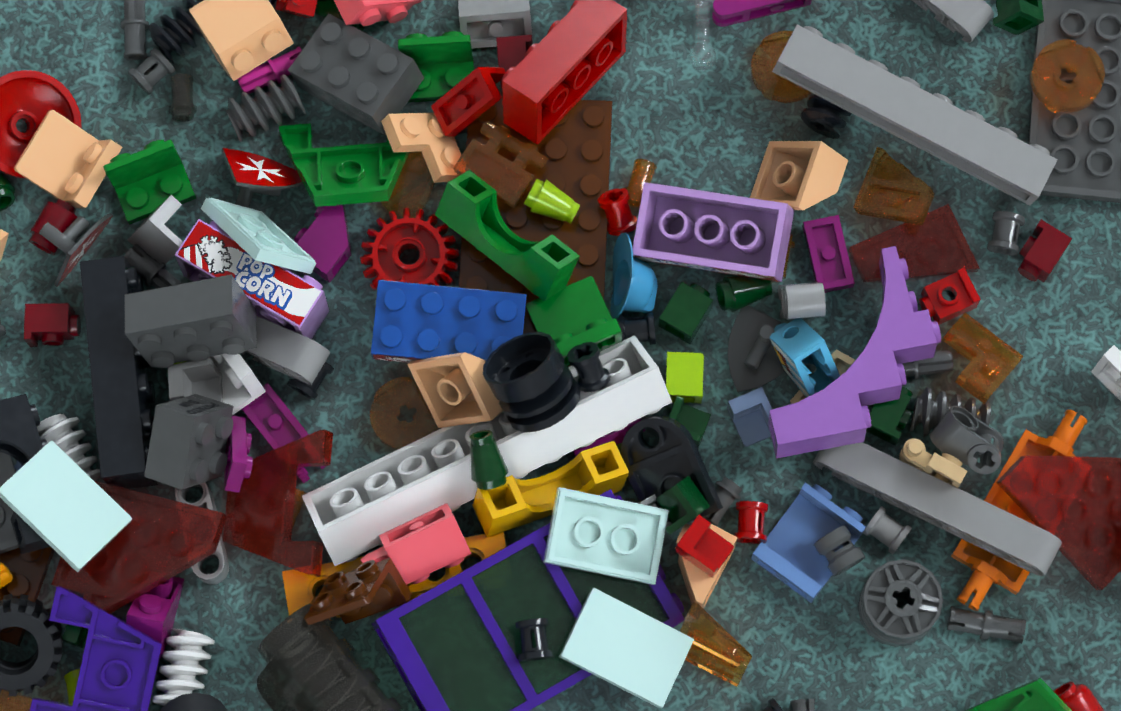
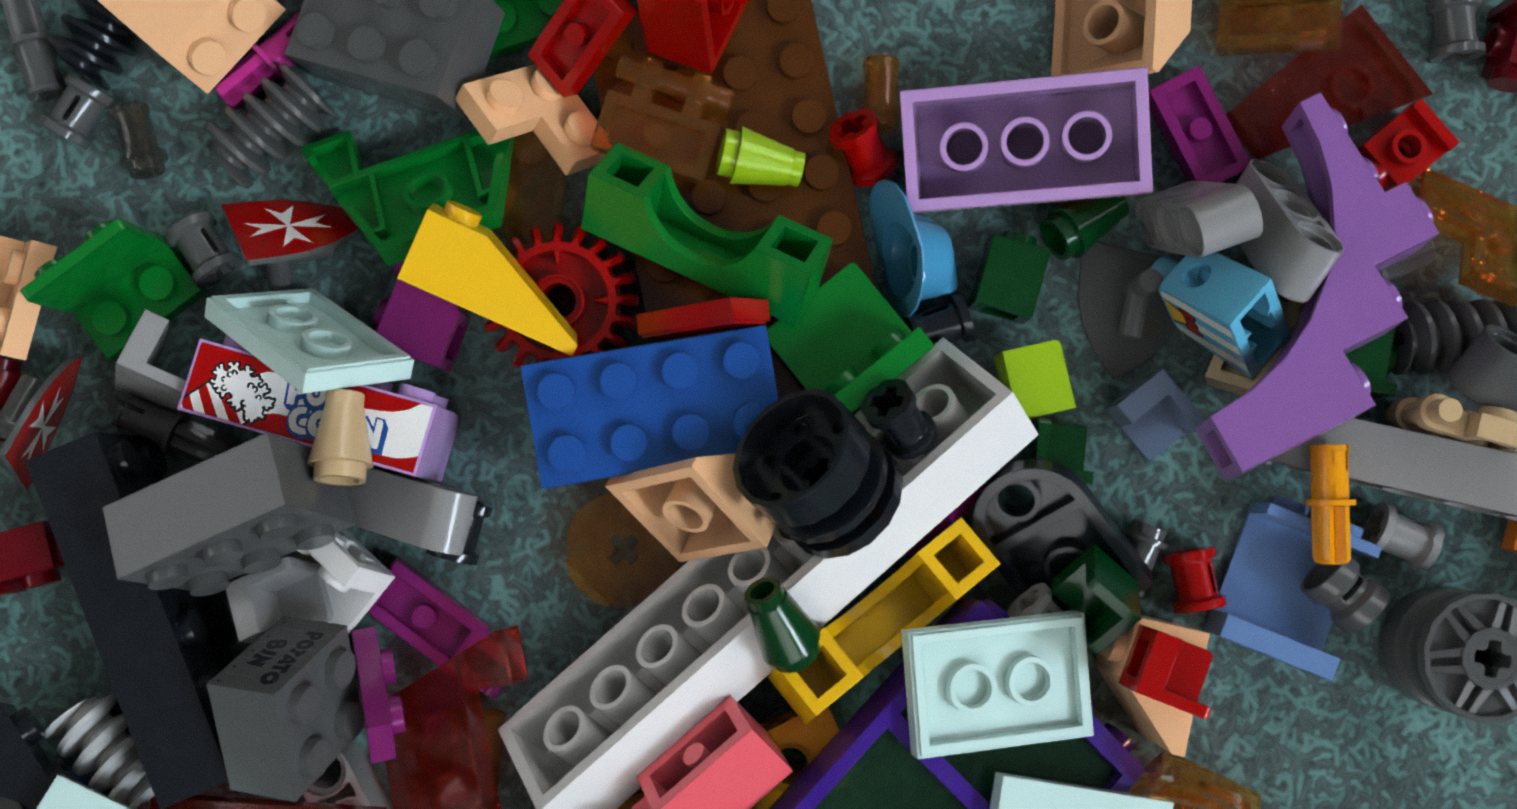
camera: 20 degrees left, 10 degrees up
(203, 171) = (203, 248): none -> dark grey bush
(265, 297) = (342, 441): none -> tan cone
(366, 219) = (476, 271): none -> yellow slope
(492, 280) = (703, 318): none -> red tile
(838, 488) = (1330, 503): none -> light orange axle
(850, 320) = (1296, 240): none -> light grey beam

